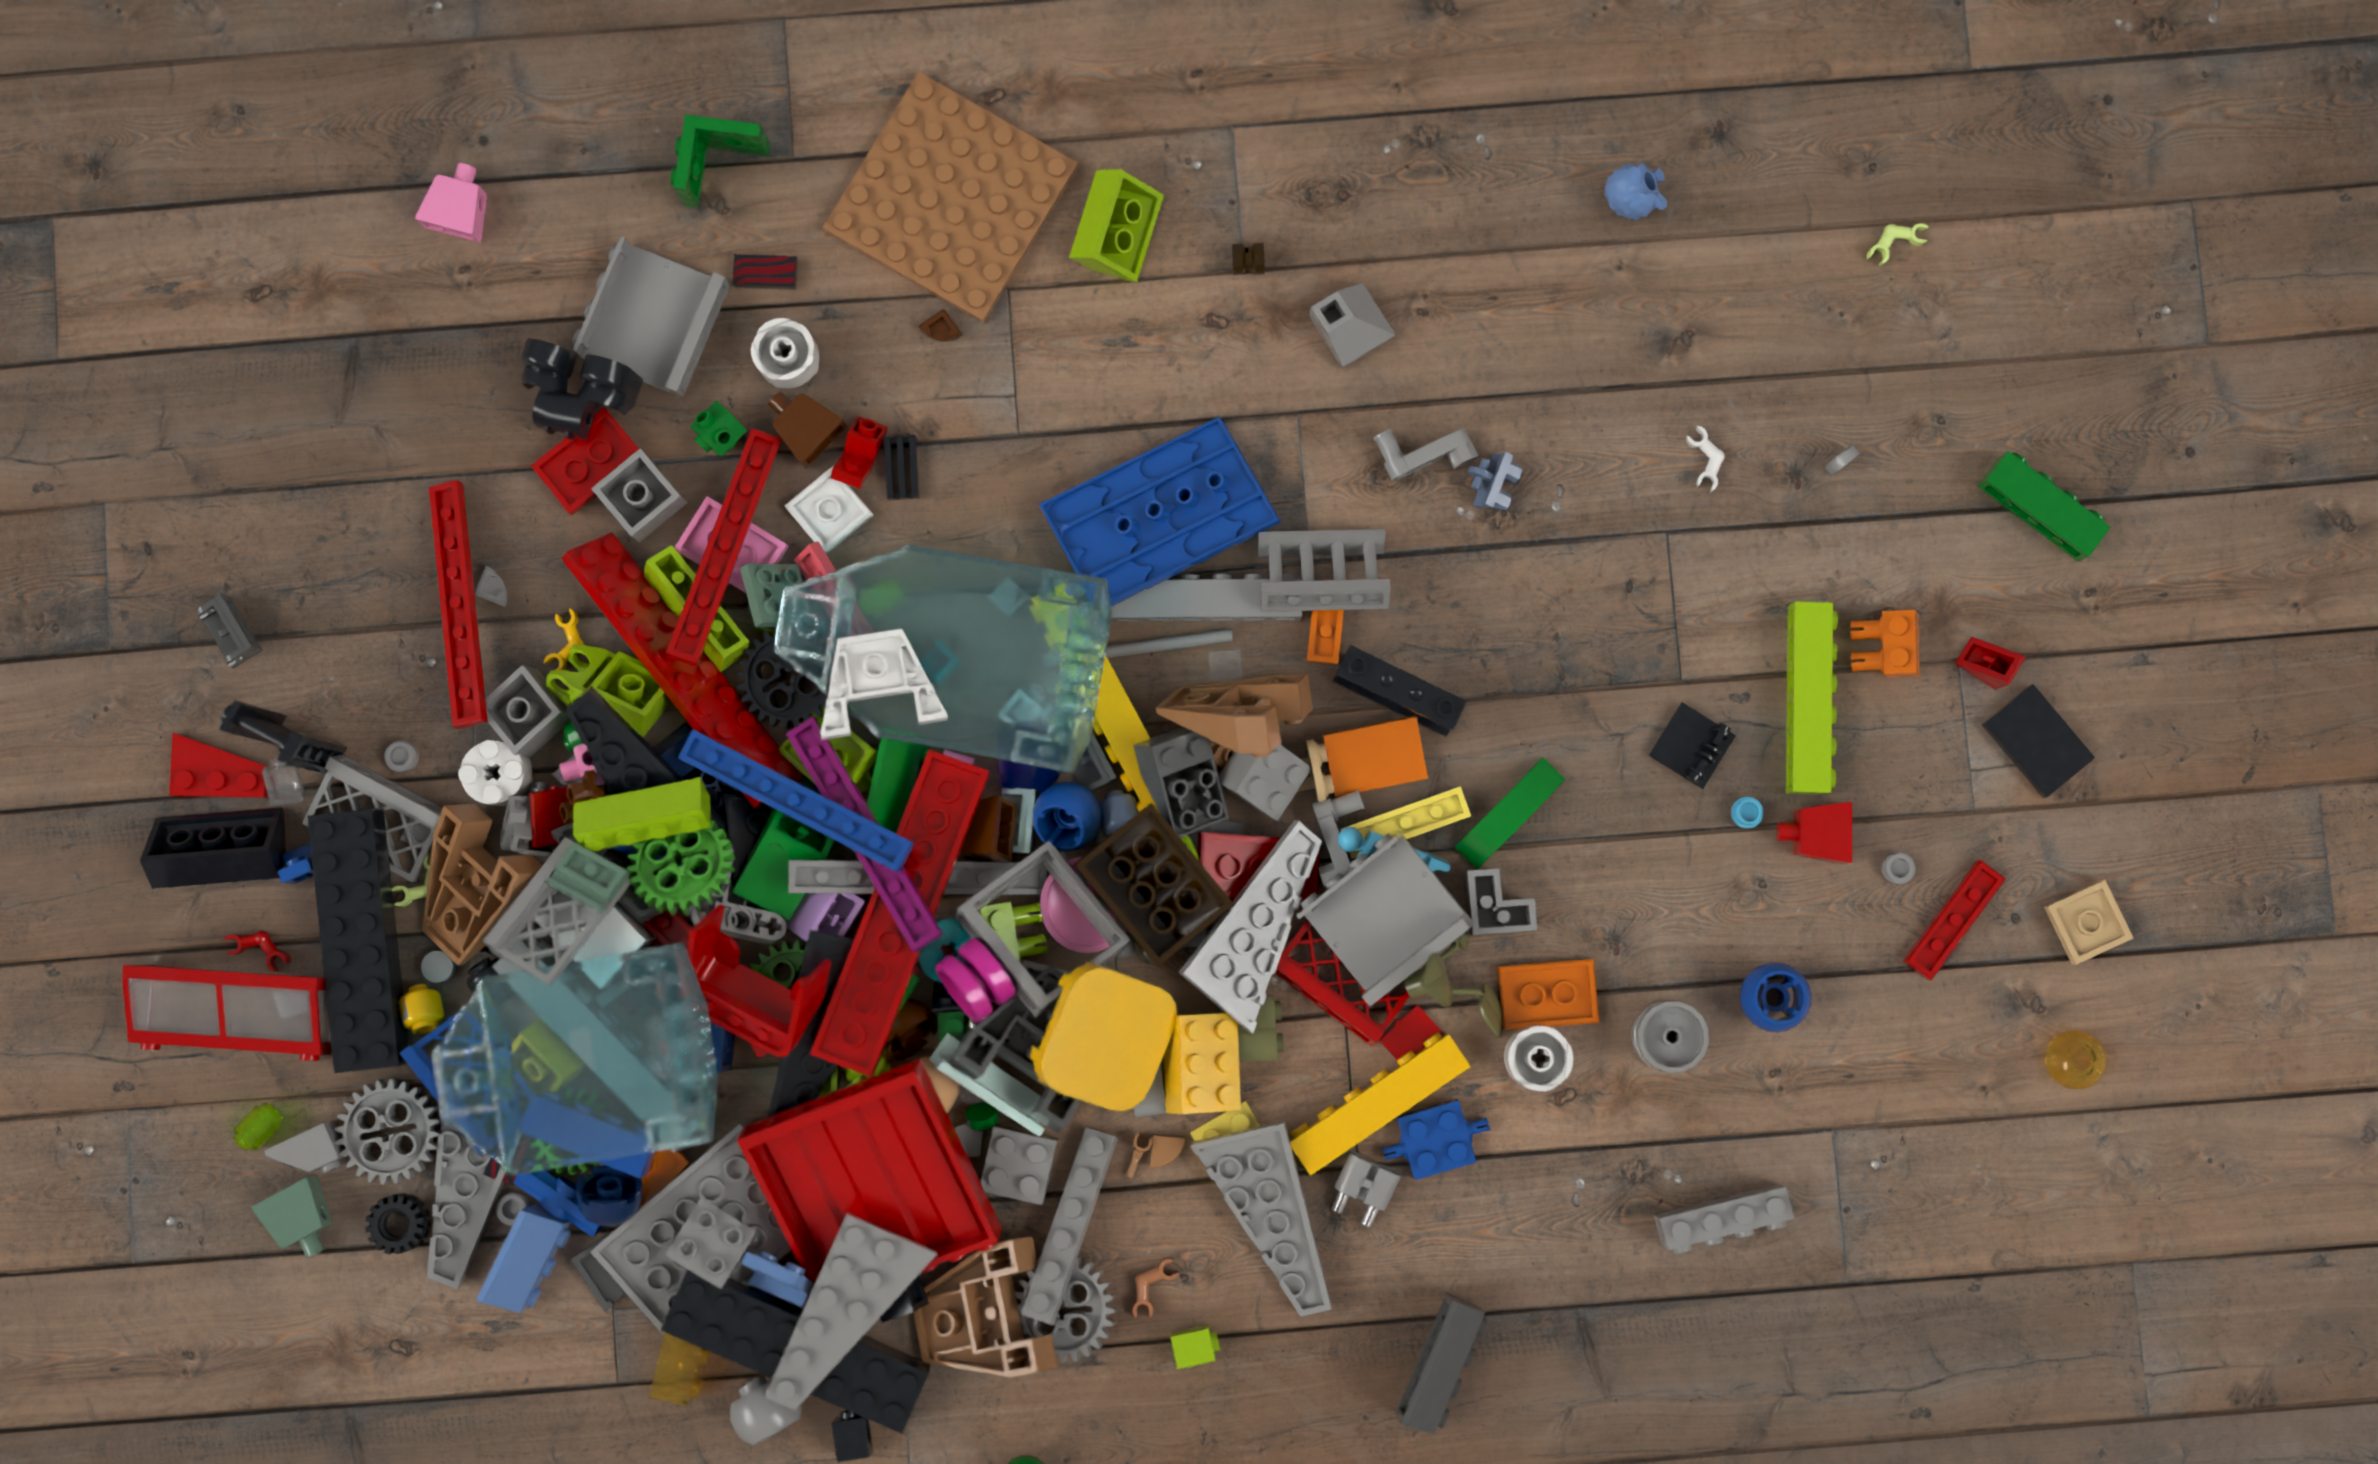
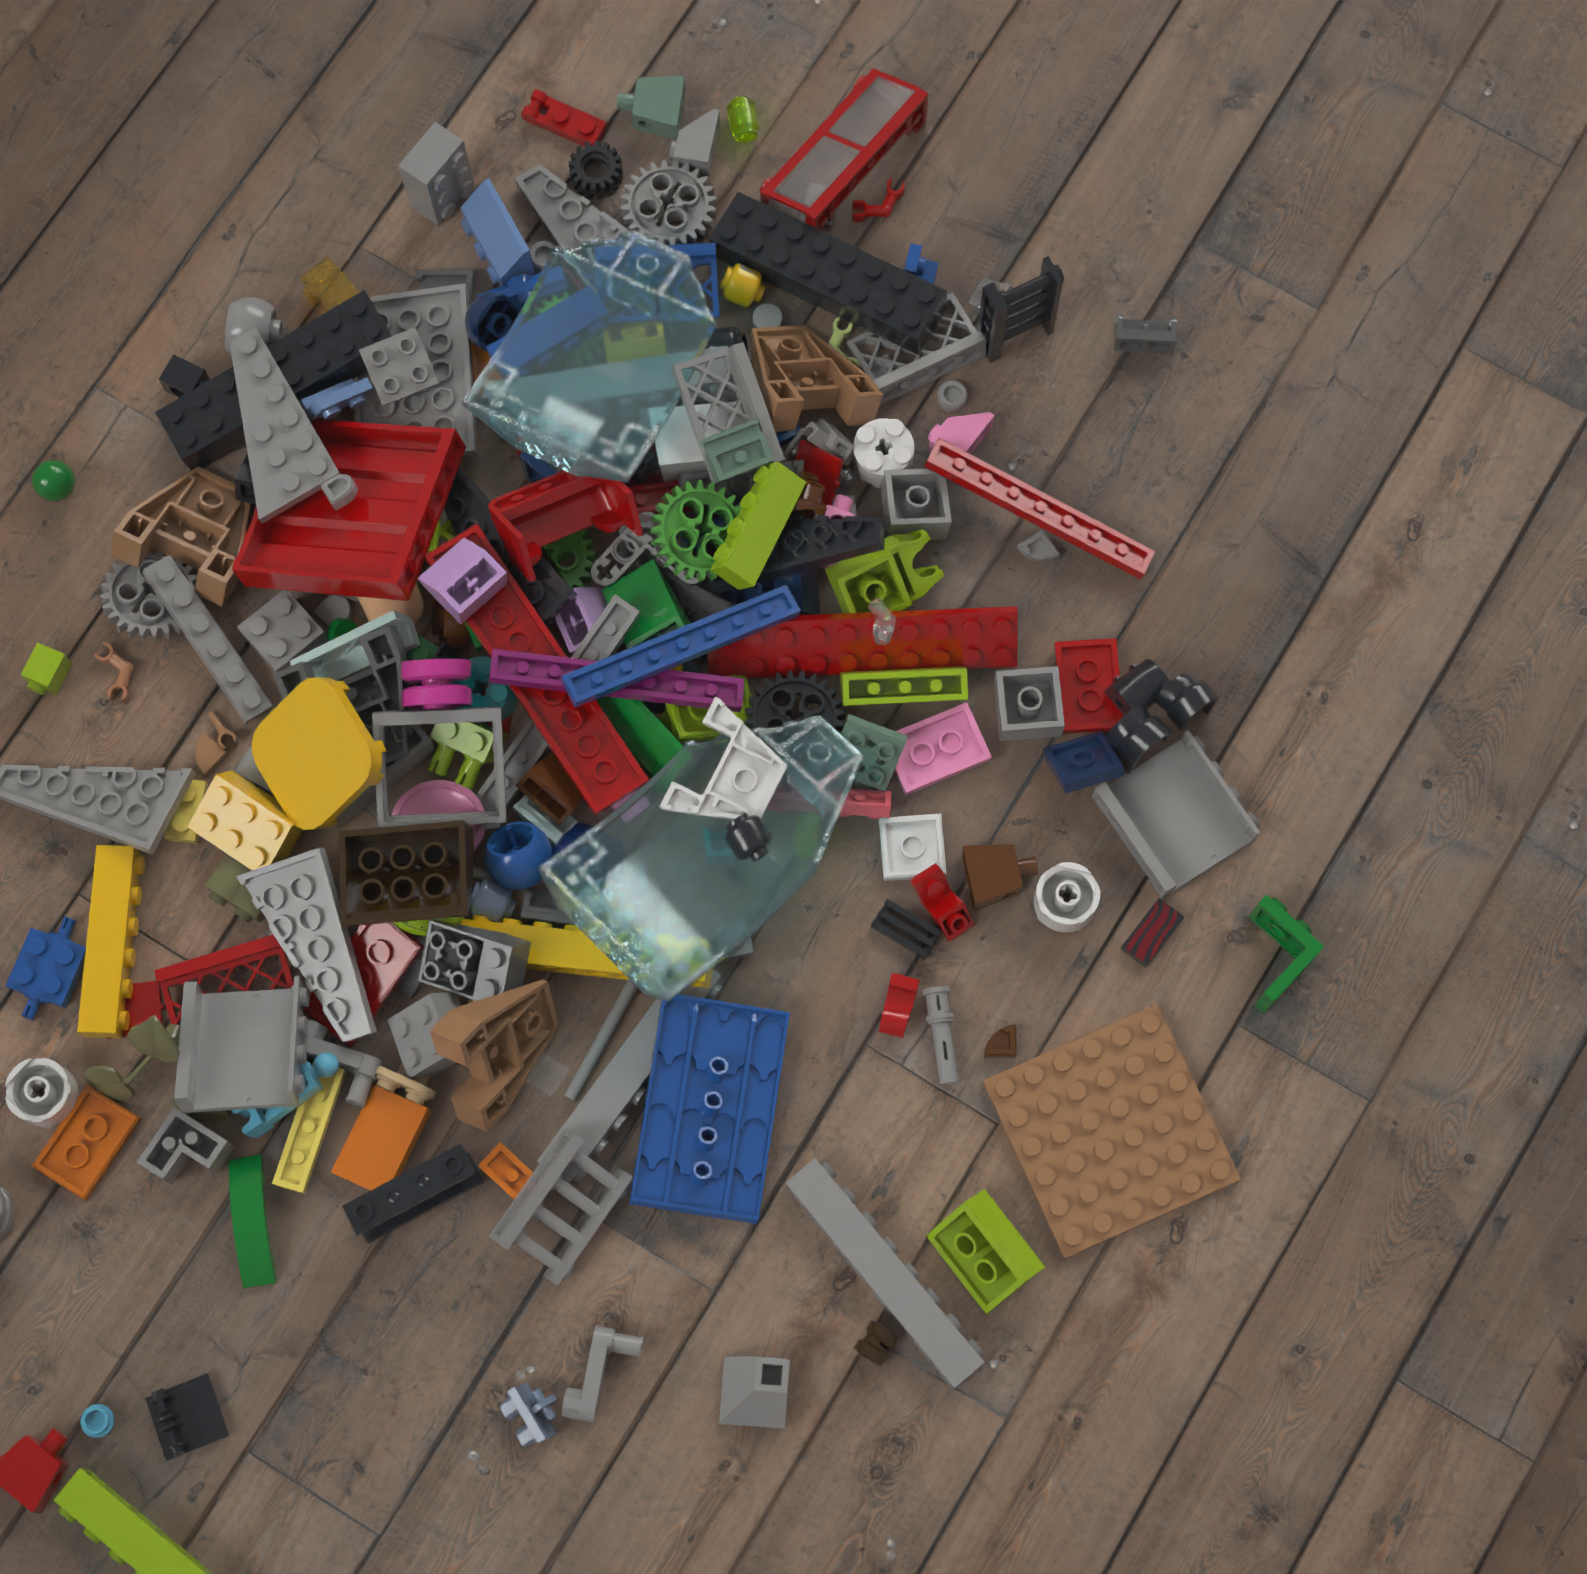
camera: 125 degrees right, 10 degrees down
(212, 772) = (1045, 239): red wing -> none
(215, 848) = (978, 219): black slope -> none
(367, 1291) = (563, 119): none -> red plate
(434, 721) = (963, 431): none -> bright pink slope
(455, 205) = (1381, 722): bright pink torso -> none
(502, 1354) = (436, 174): none -> light grey brick
(572, 636) = (953, 581): yellow arm -> none
(650, 654) = (884, 622): none -> clear arm
(659, 417) = (1083, 762): none -> dark blue plate
(717, 429) = (1041, 801): green brick -> none
(723, 548) = (935, 737): red plate -> none
(862, 1201) = (340, 490): none -> light grey tile
(868, 1023) = (464, 579): none -> lavender slope
(922, 624) = (748, 837): none -> black head
(957, 387) = (941, 1032): none -> light grey pin
(970, 427) = (898, 1005): none -> red leg
(1190, 289) = (884, 1273): none -> light grey brick
(1366, 1181) = (58, 890): light grey piece -> none

